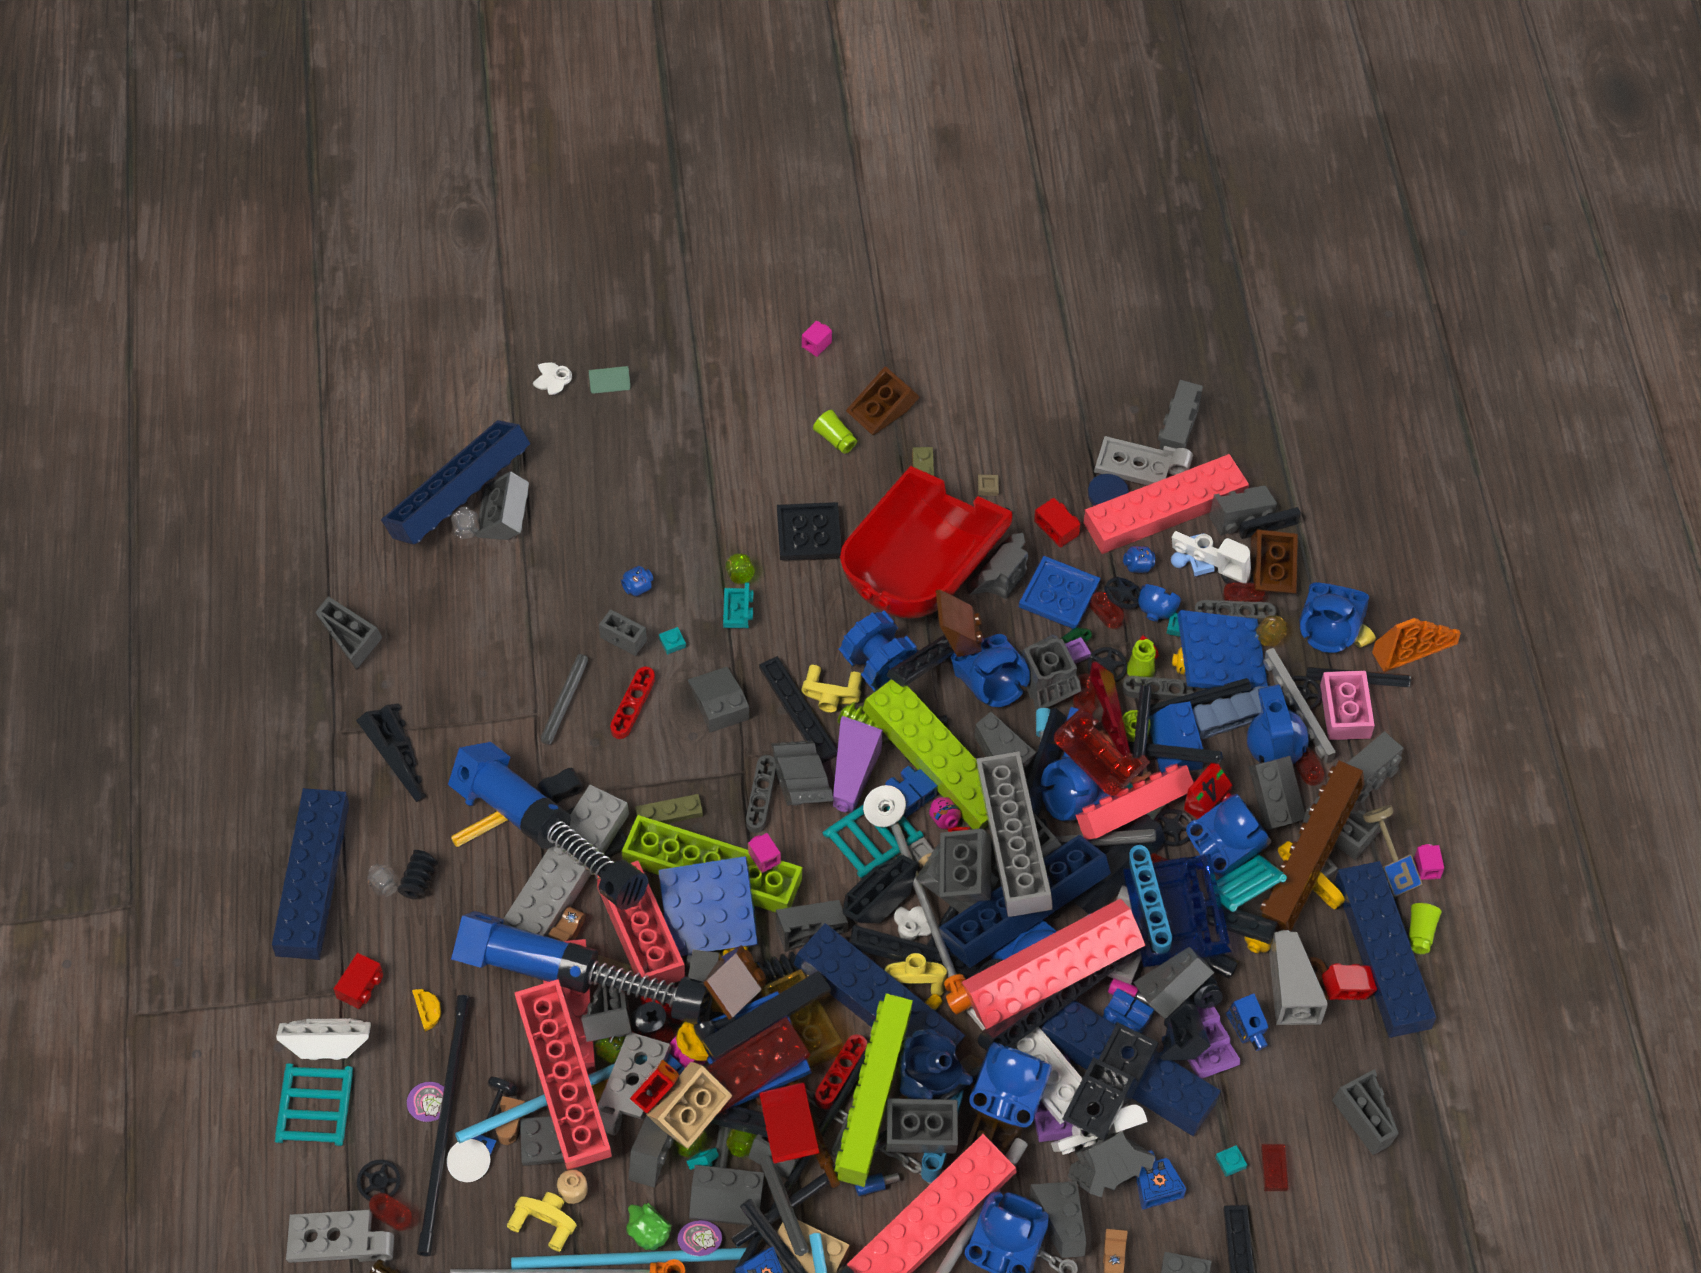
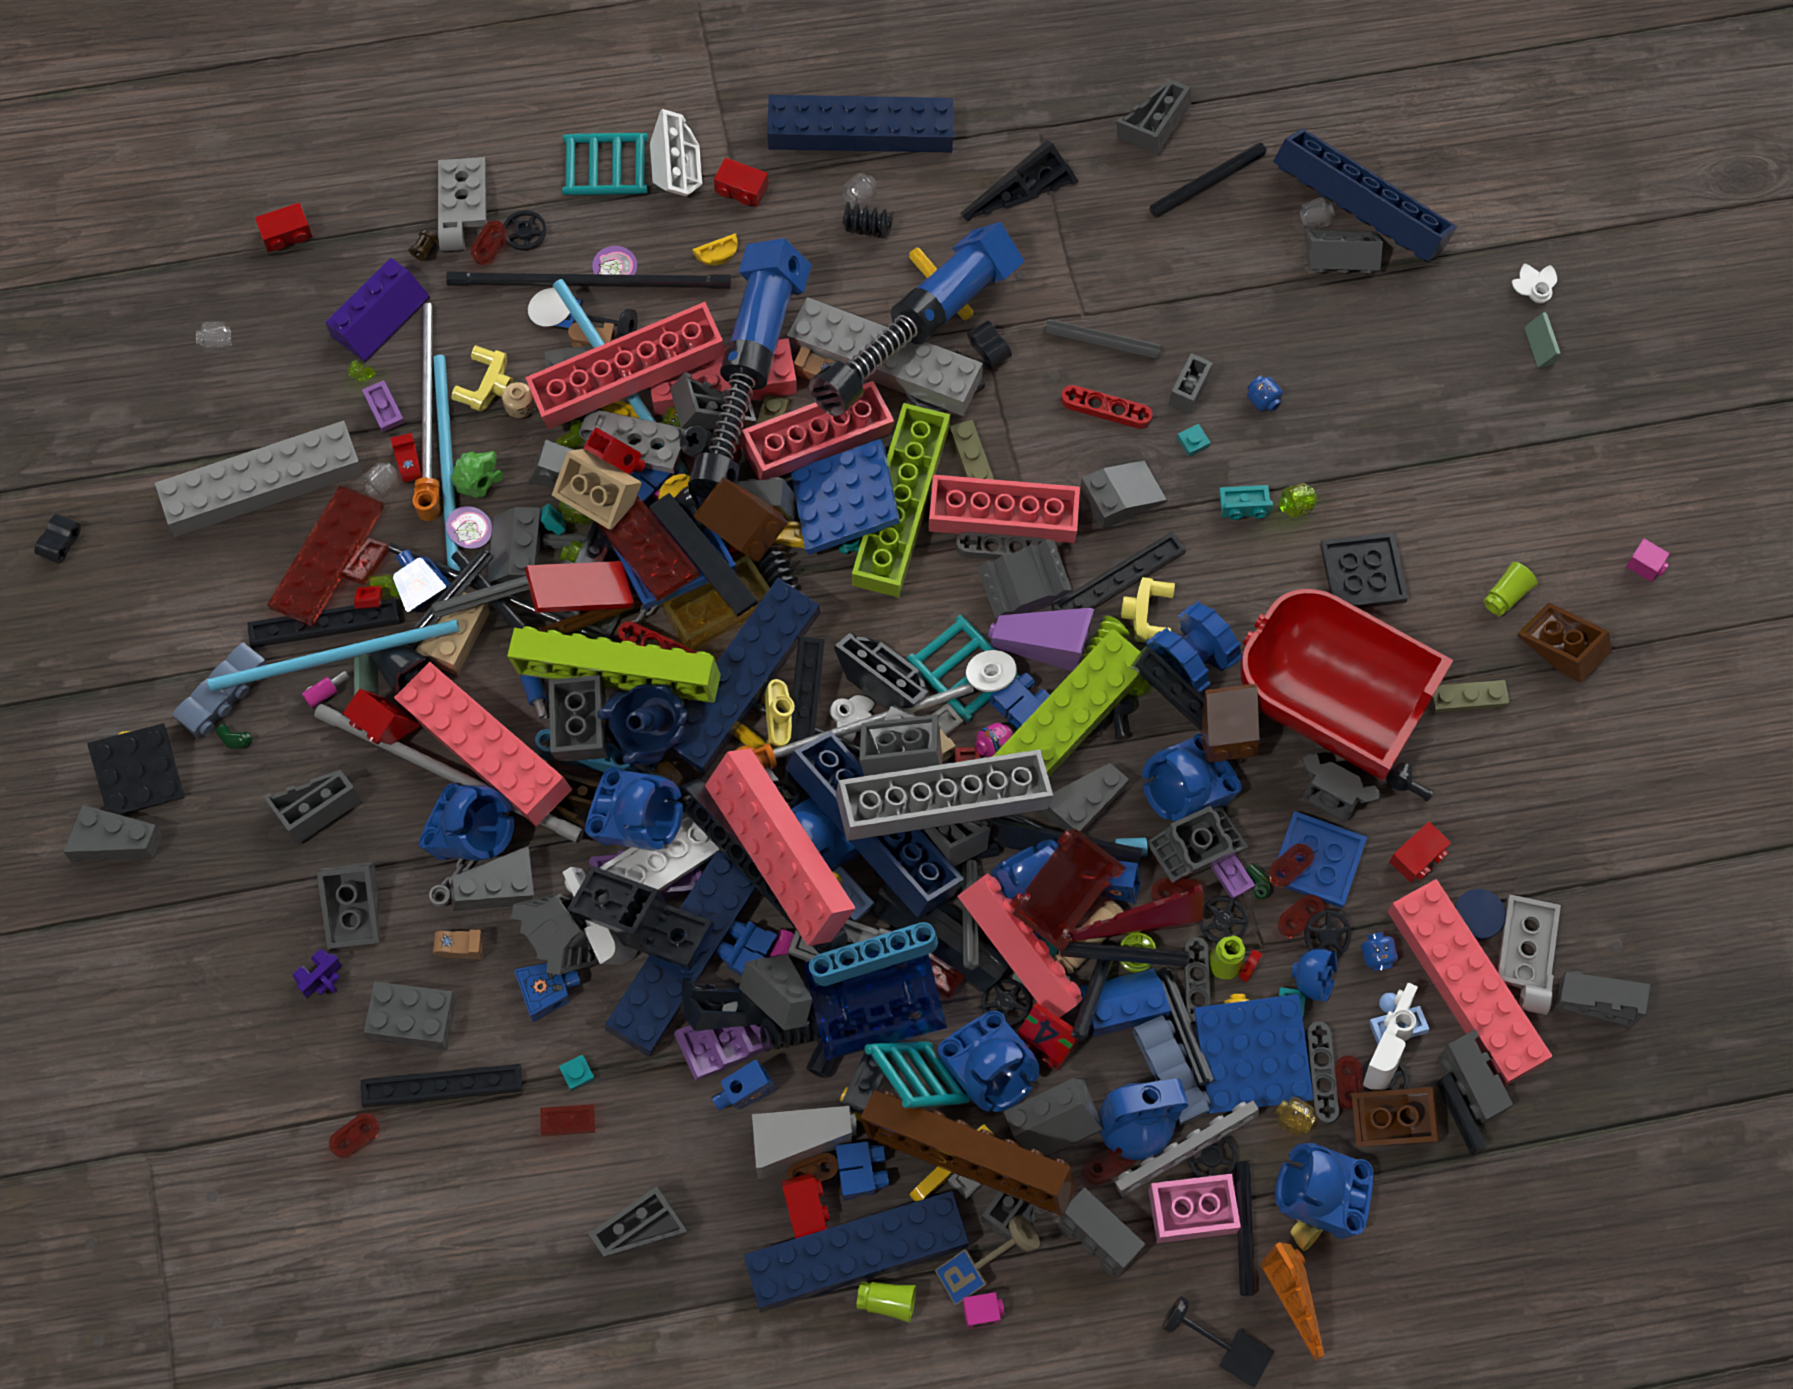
camera: 85 degrees right, 10 degrees up
(414, 602) = (1207, 179): none -> black axle
(617, 1145) = (572, 438): none -> clear neon green arm
(730, 782) = (1004, 508): none -> coral brick
(764, 852) = (908, 540): dark pink brick -> none
(800, 923) = (836, 600): dark grey wedge -> none
(988, 485) = (1466, 771): dark tan tile -> none
(1069, 608) = (1290, 866): none -> clear red plate
(1320, 942) = (856, 1169): none -> blue hips
(1455, 688) = (1244, 1355): none -> black piece

